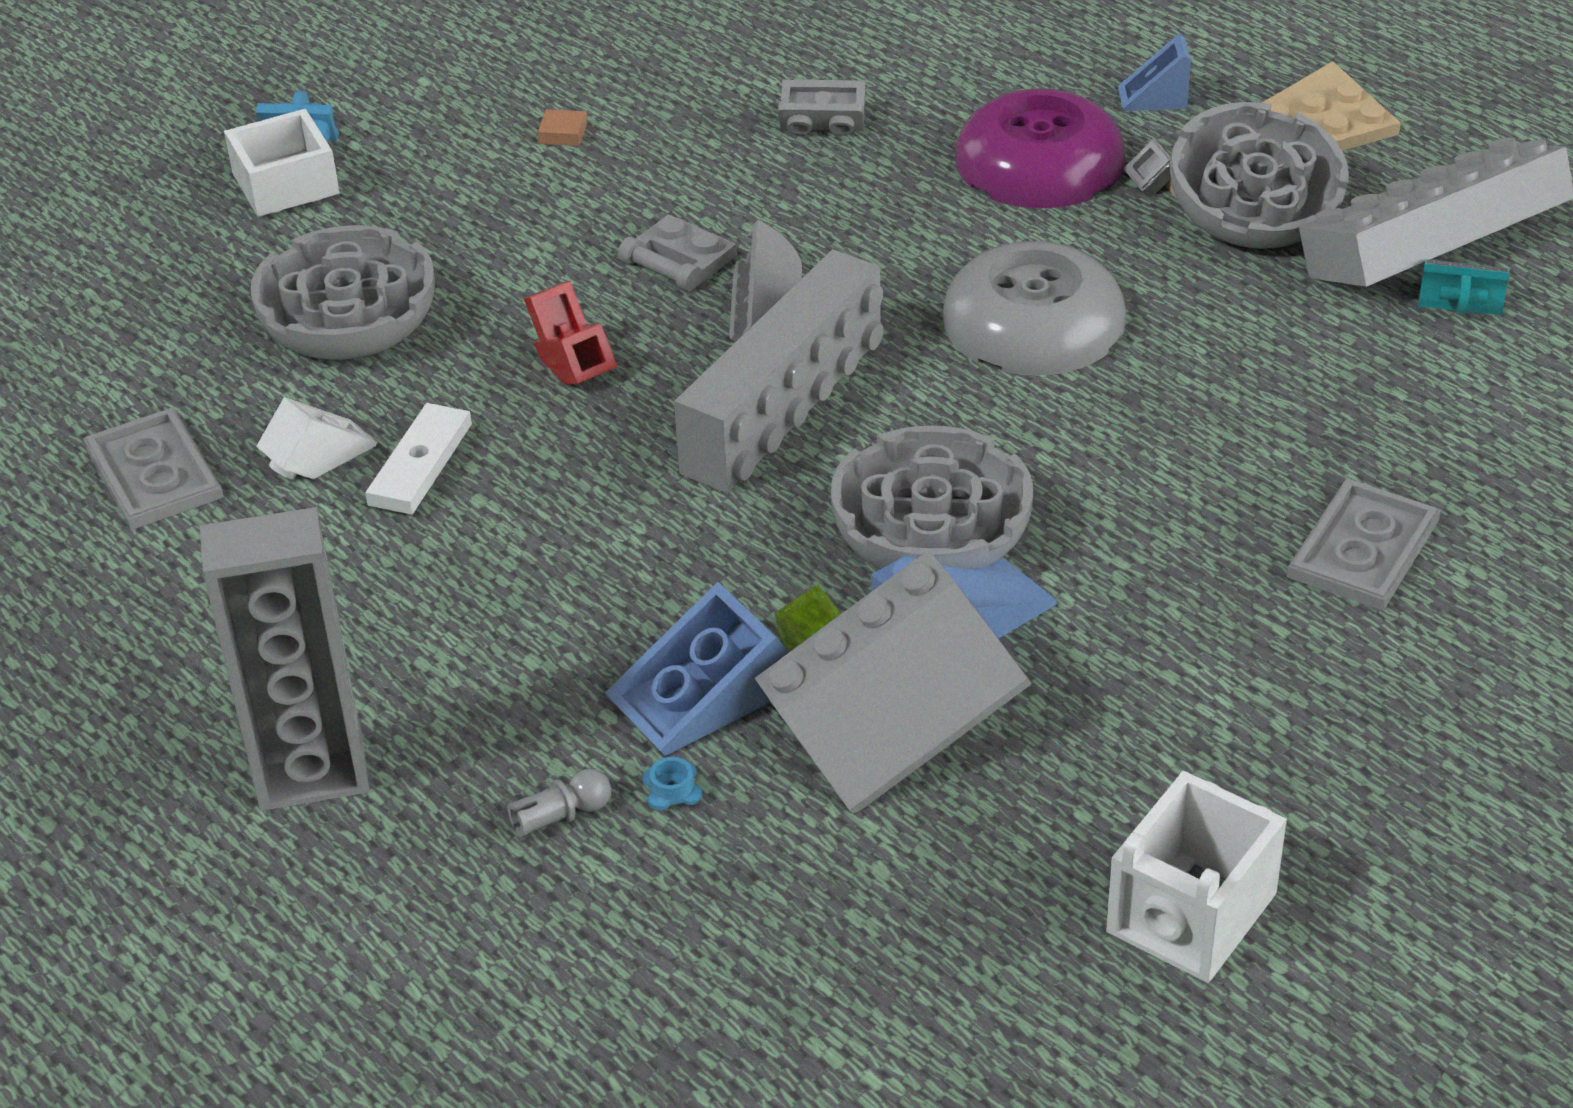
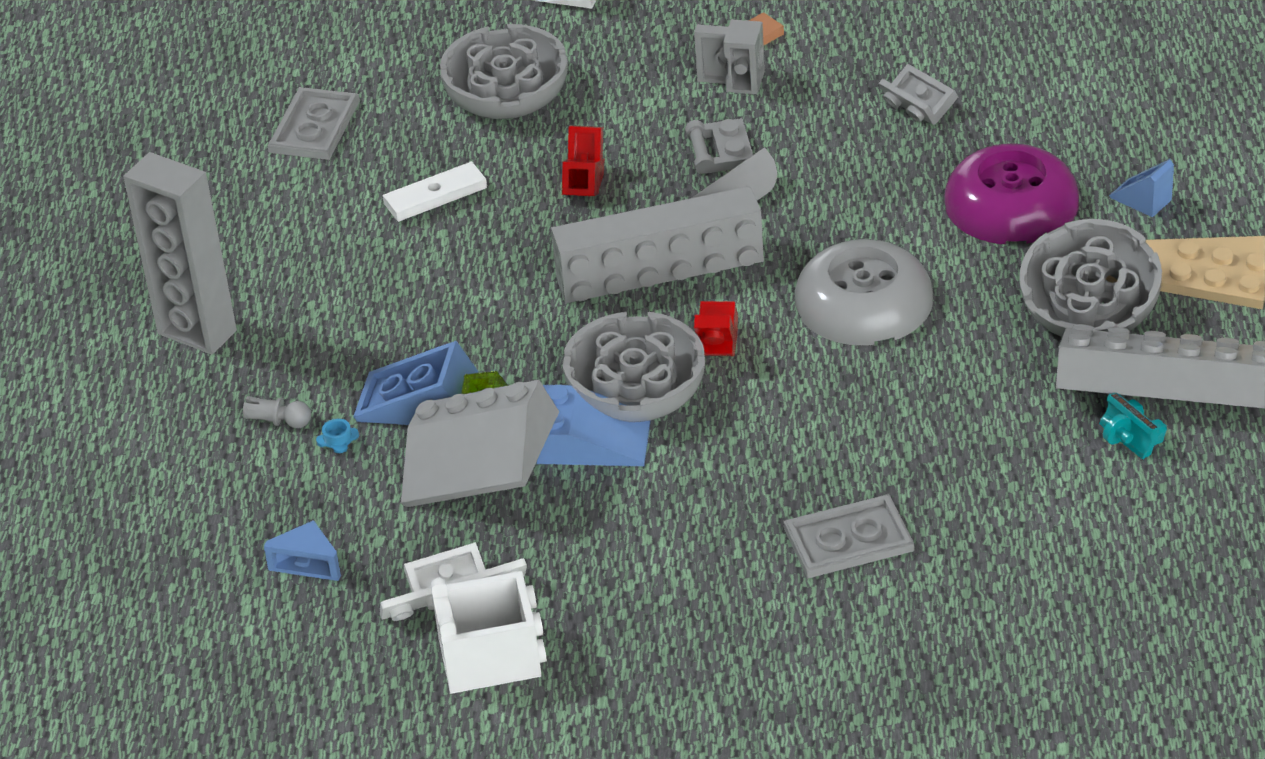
camera: 45 degrees right, 0 degrees up
(310, 440) = (395, 150): white slope -> none
(592, 154) = (740, 46): none -> light grey brick
(838, 935) = (303, 553): none -> medium blue slope
(953, 407) = (717, 327): none -> red brick
(1037, 853) = (453, 566): none -> white bracket

